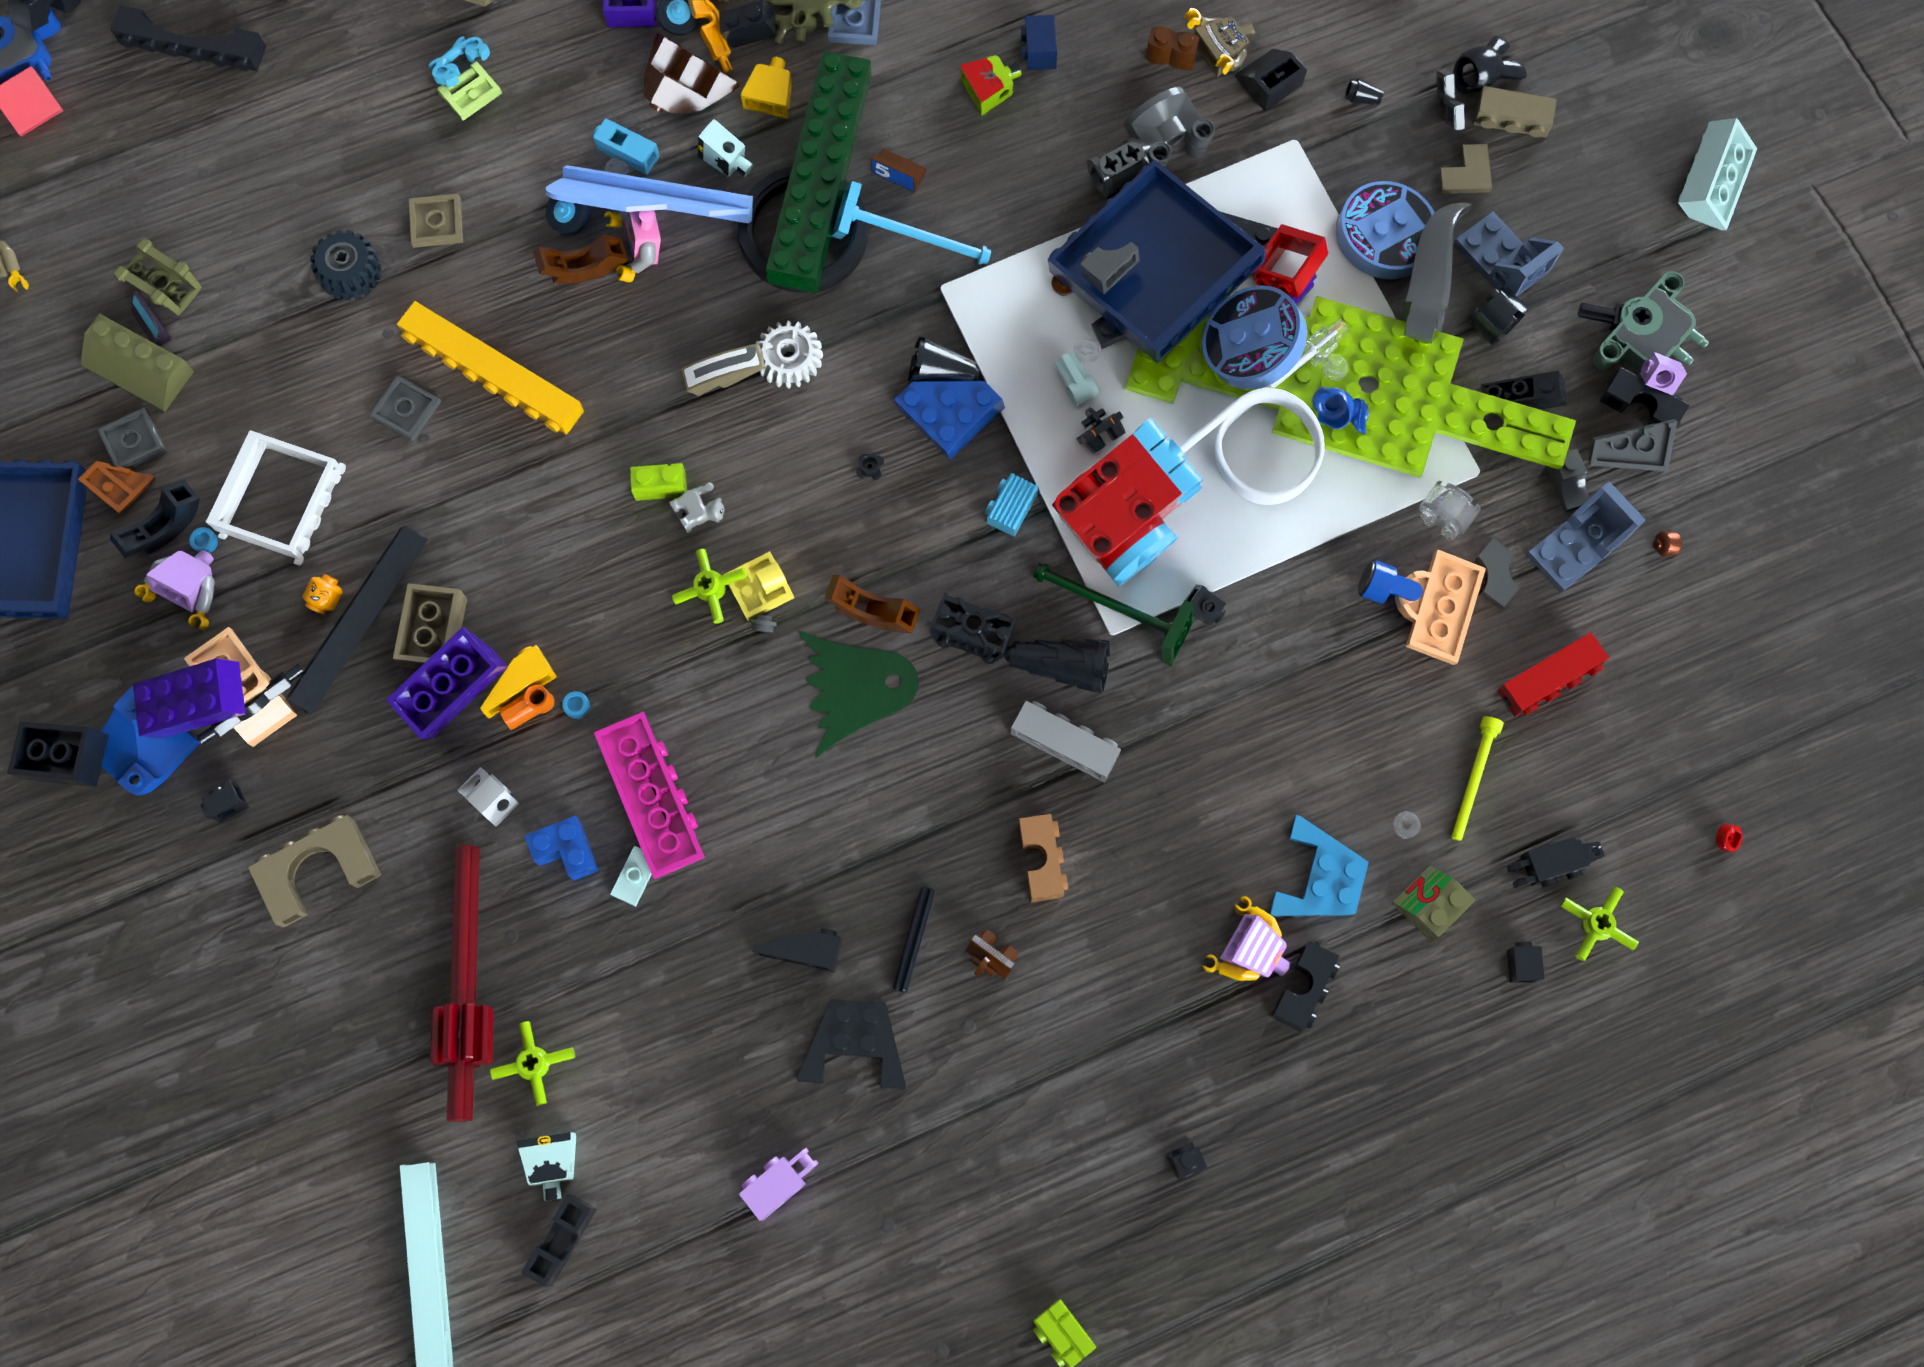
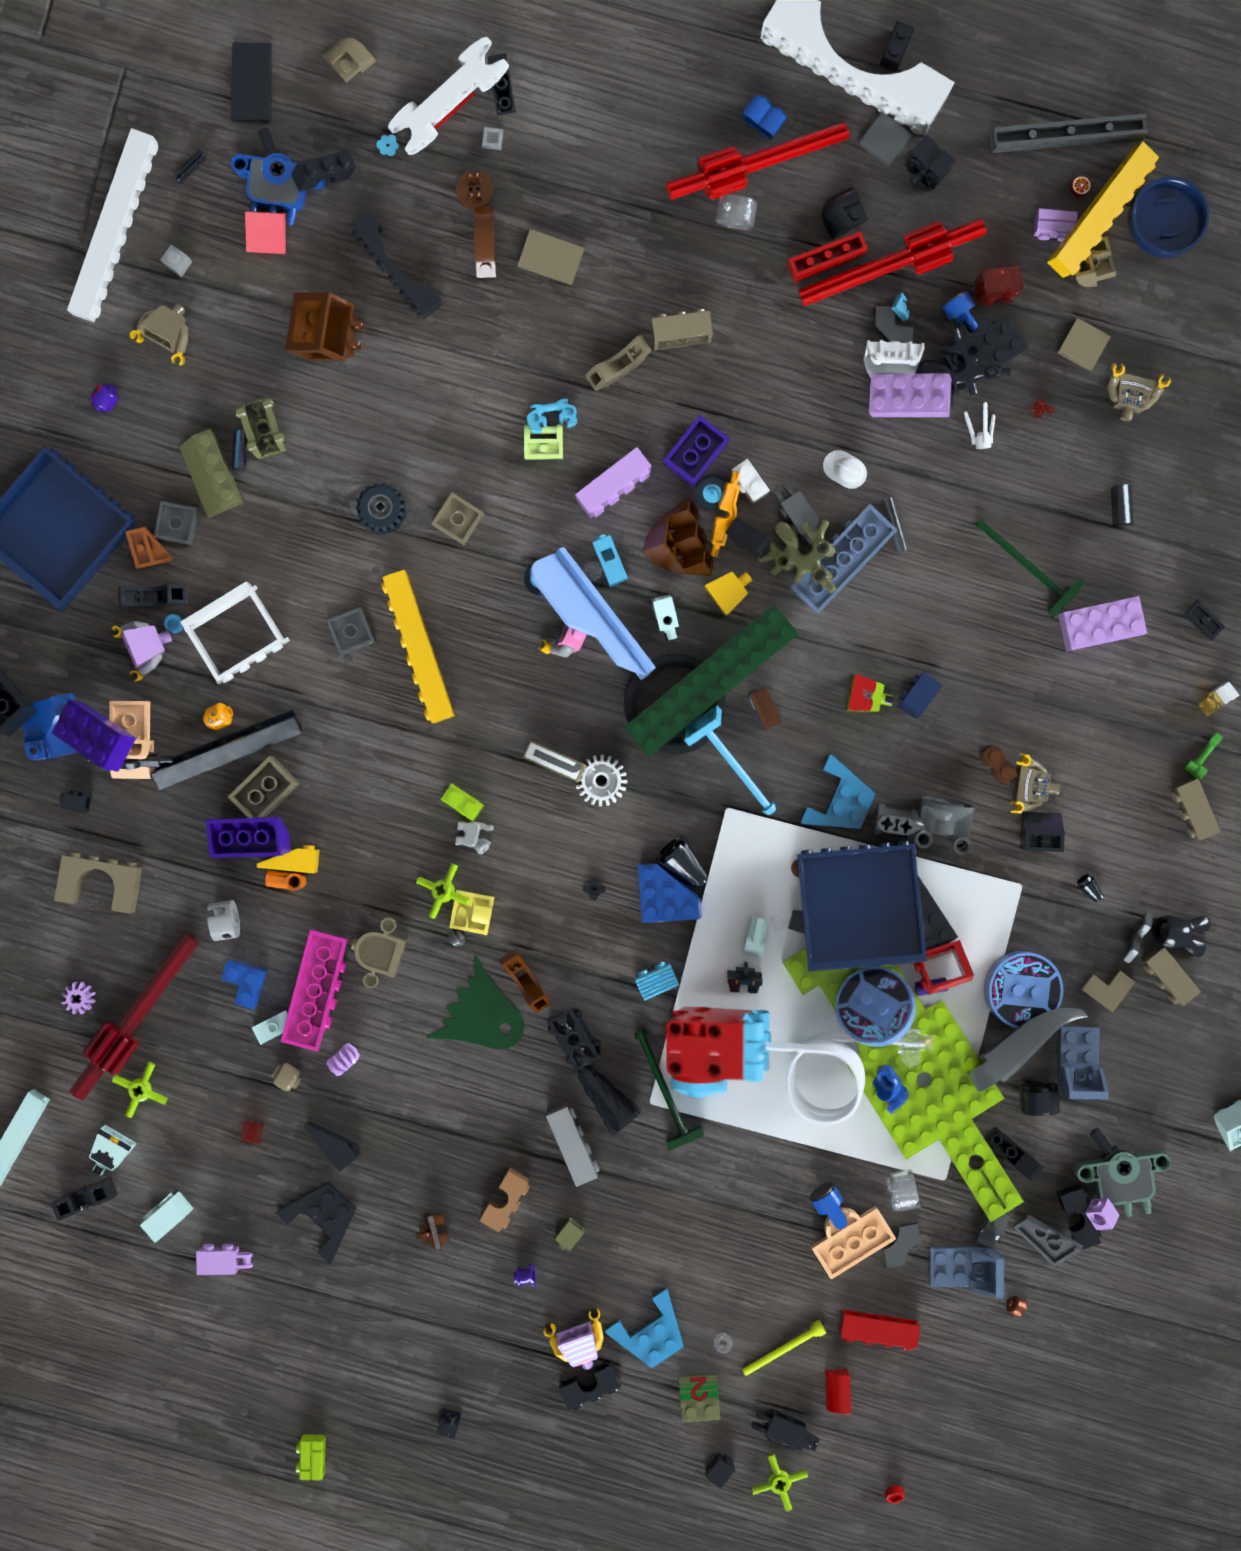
camera: 35 degrees right, 15 degrees up
(158, 142) = (322, 328): none -> reddish brown piece
(385, 1025) = (86, 1000): none -> lavender gear
(570, 70) = (614, 482): none -> lavender brick
(576, 705) = (314, 899): dark azure tile -> none
(582, 264) = (523, 620): reddish brown arch -> none
(671, 1180) = (166, 1216): none -> light aqua brick
(690, 701) = (379, 952): none -> dark tan piece
(691, 915) = (286, 1077): none -> dark tan head
(700, 1011) = (252, 1132): none -> clear red tile
(739, 844) = (343, 1059): none -> lavender gear
(913, 939) = (399, 1186): black axle -> none
(1058, 192) = (848, 803): none -> dark azure wing
(1107, 267) = (823, 894): dark grey arch -> none
(1133, 923) = (525, 1276): none -> dark purple brick
(1142, 839) = (569, 1234): none -> olive brick
(1199, 597) = (716, 1131): black brick -> none
(1571, 775) = (838, 1391): none -> red brick

